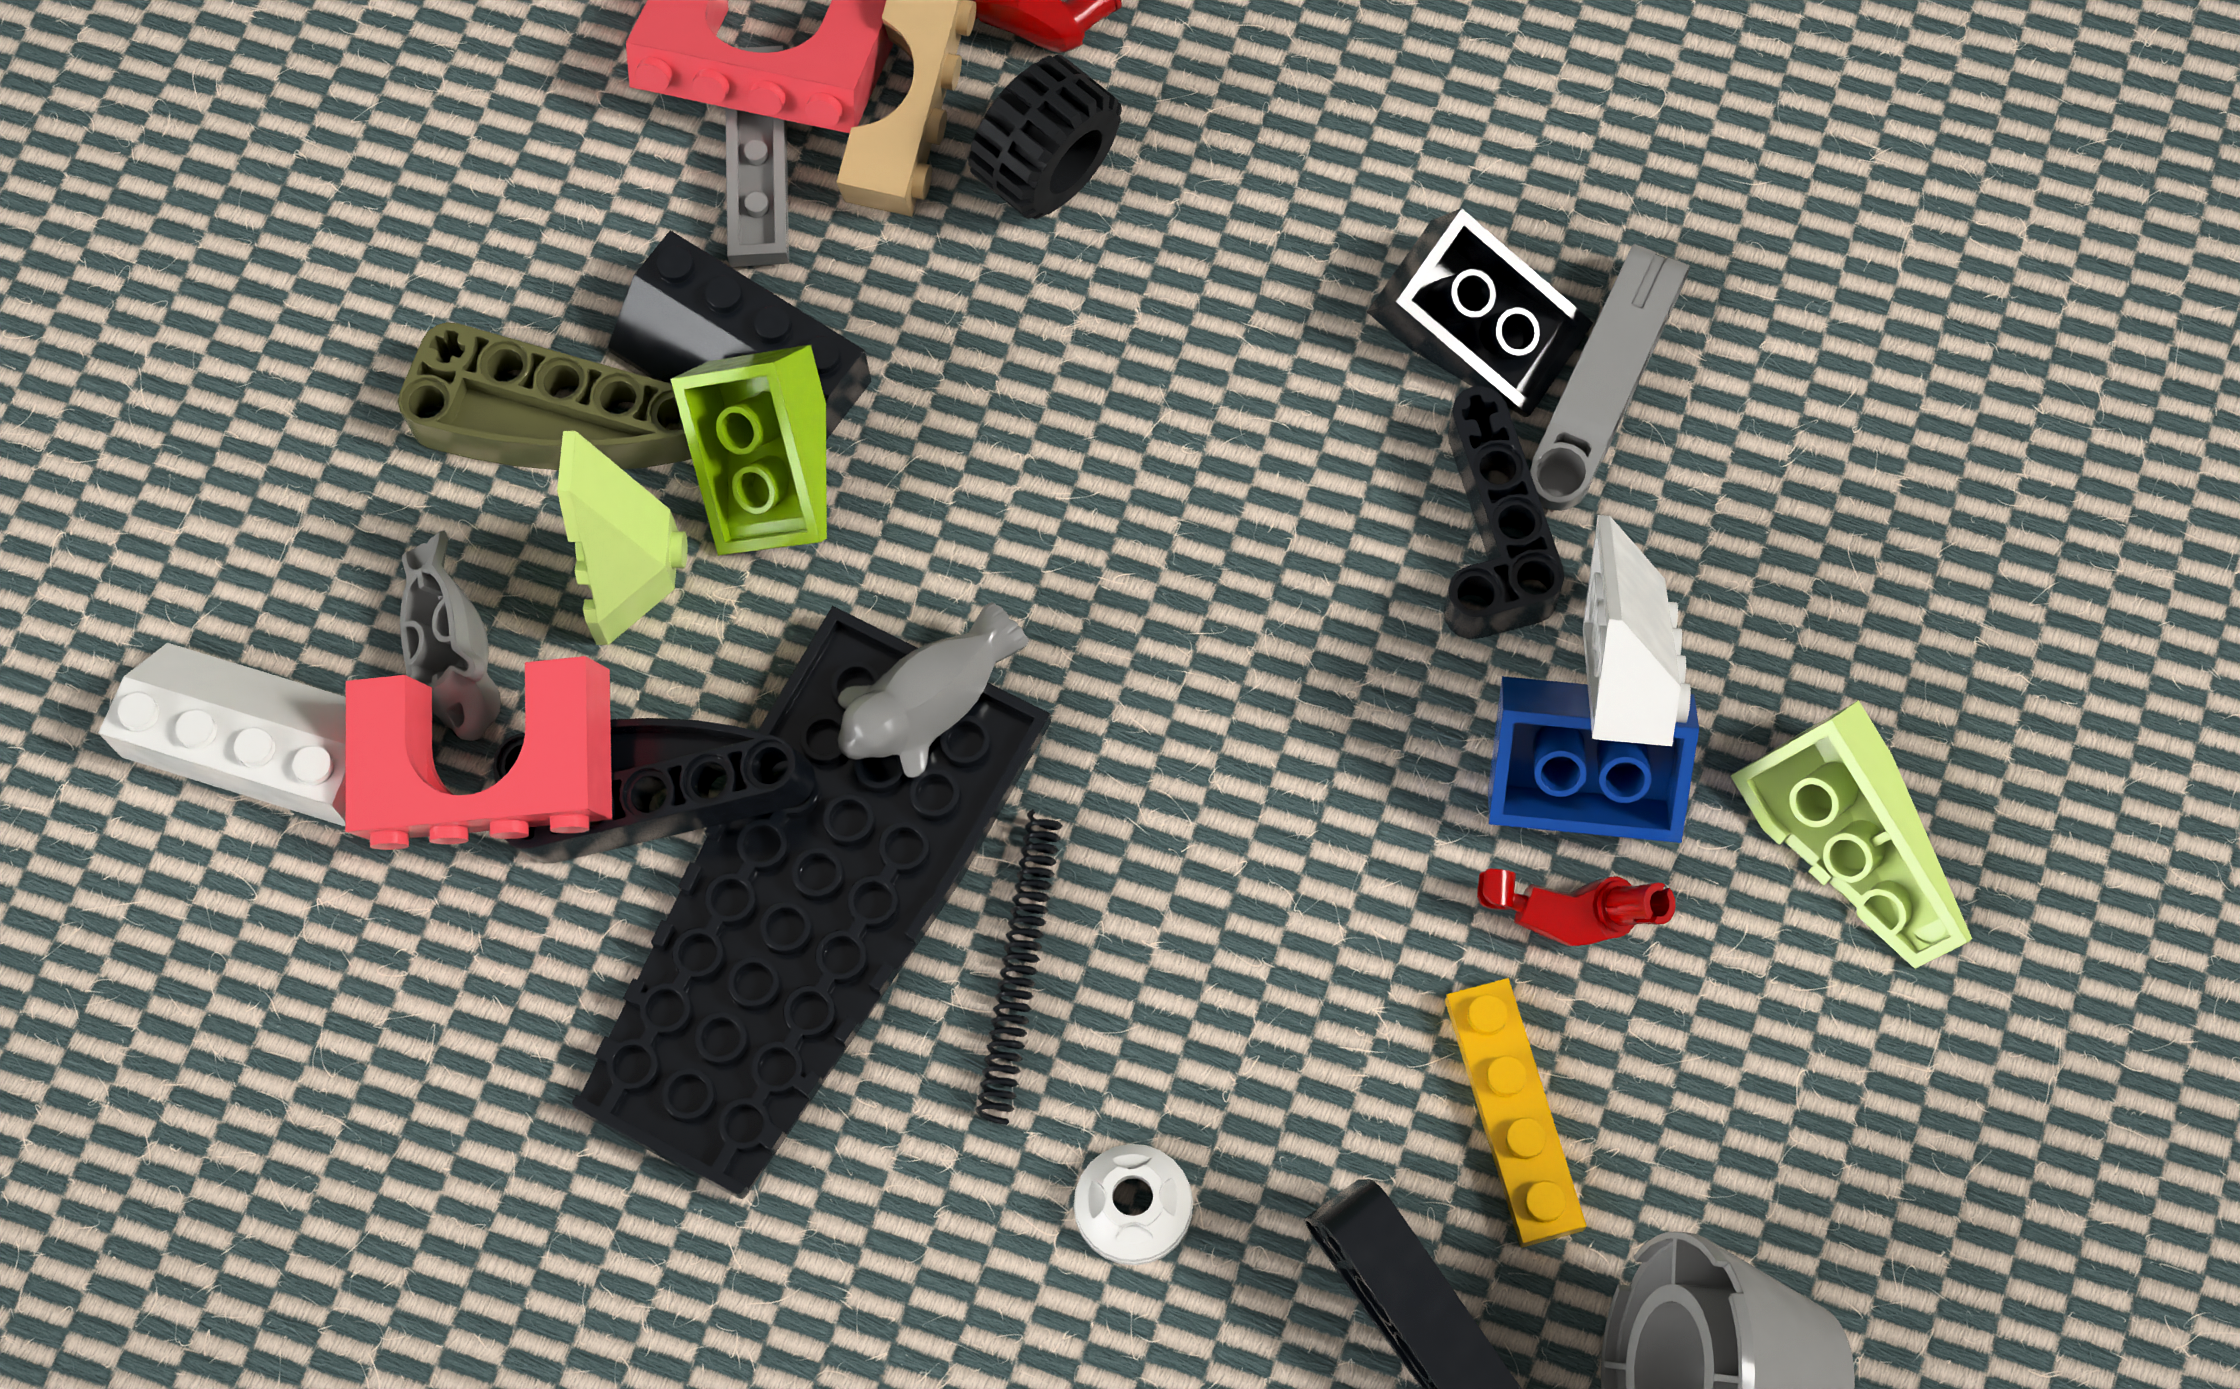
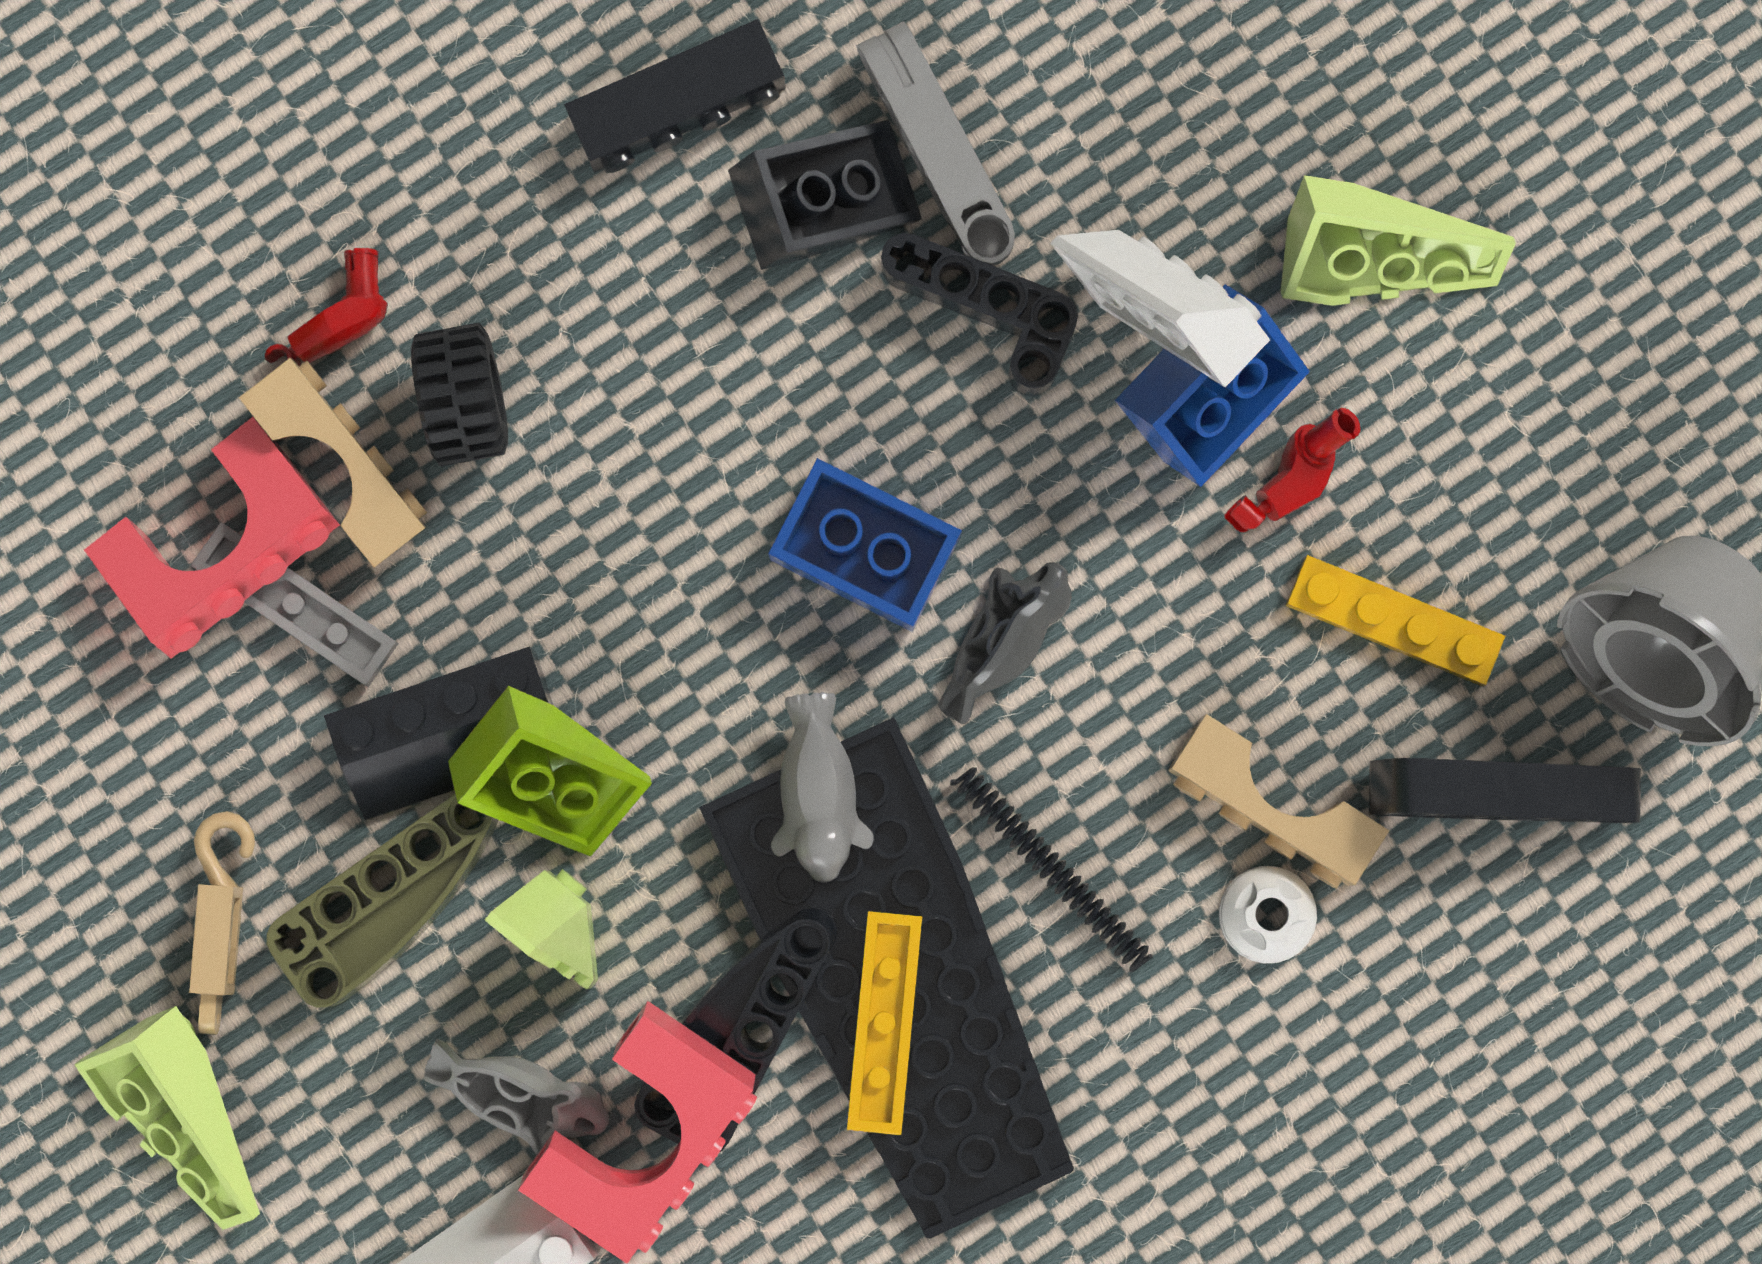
camera: 55 degrees left, 15 degrees up
(243, 341) = (169, 1093): none -> yellowish green wedge
(416, 290) = (217, 921): none -> tan piece
(749, 906) = (884, 1023): none -> yellow plate
(1188, 570) = (864, 545): none -> blue brick
(1209, 758) = (1005, 635): none -> dark grey animal
(1255, 1205) = (1218, 766): none -> tan arch
(1459, 135) = (676, 97): none -> black brick

